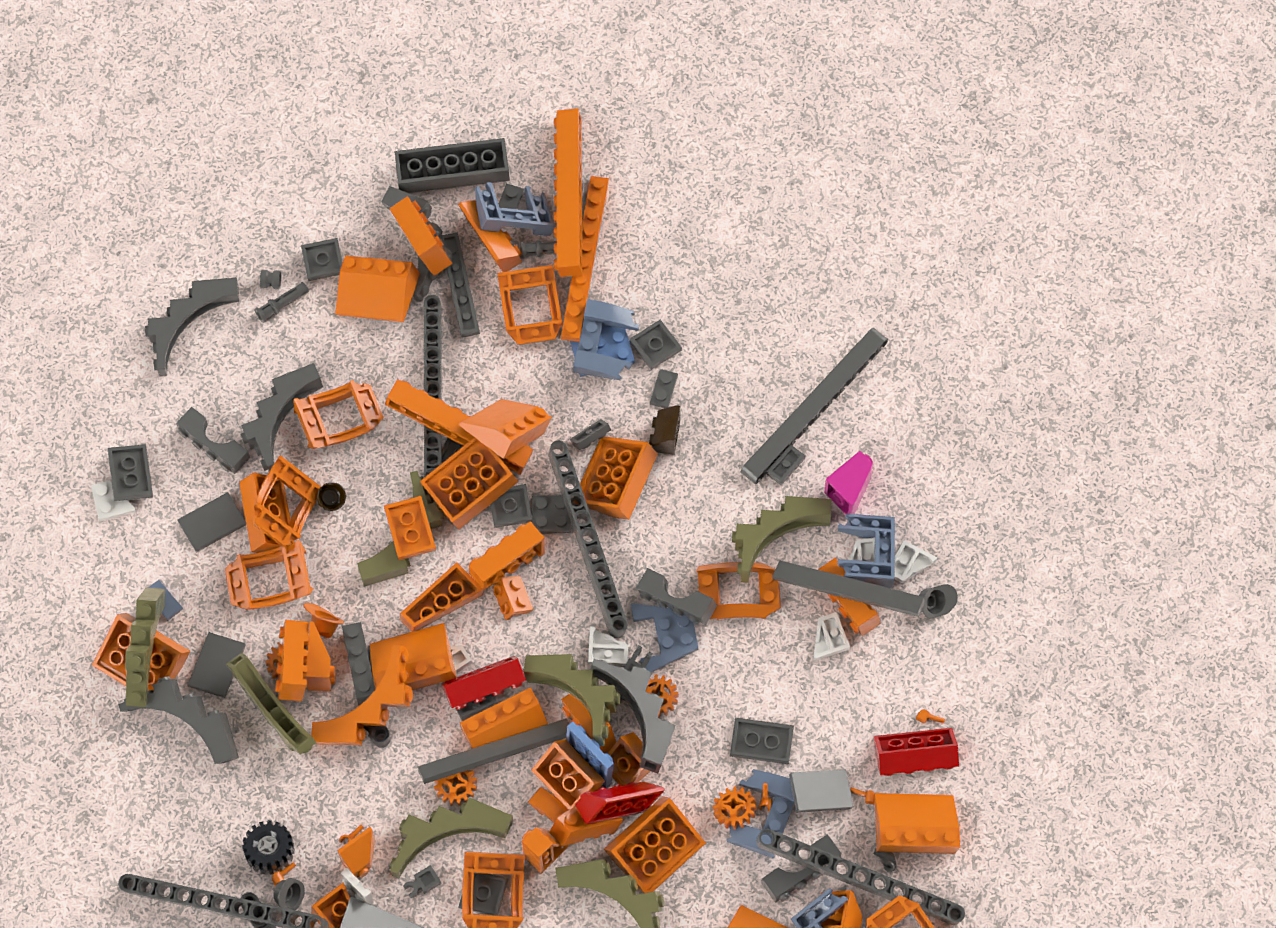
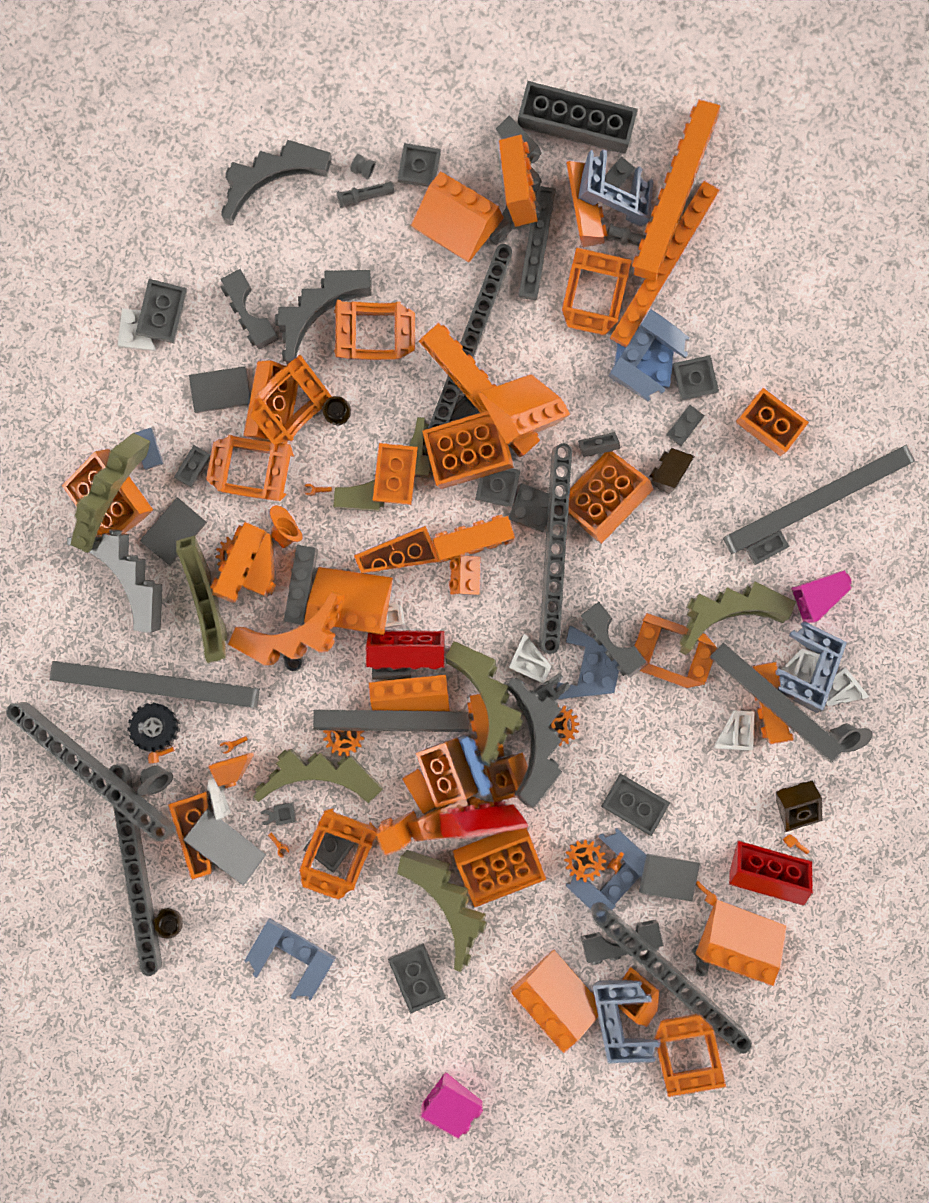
camera: 15 degrees right, 20 degrees up
(212, 598) = (192, 466): none -> dark grey plate
(251, 808) = (154, 684): none -> dark grey beam
(339, 575) = (317, 489): none -> orange hand
(432, 912) = (278, 844): none -> orange hand
(741, 354) = (772, 422): none -> orange brick
(916, 680) = (799, 805): none -> dark brown slope

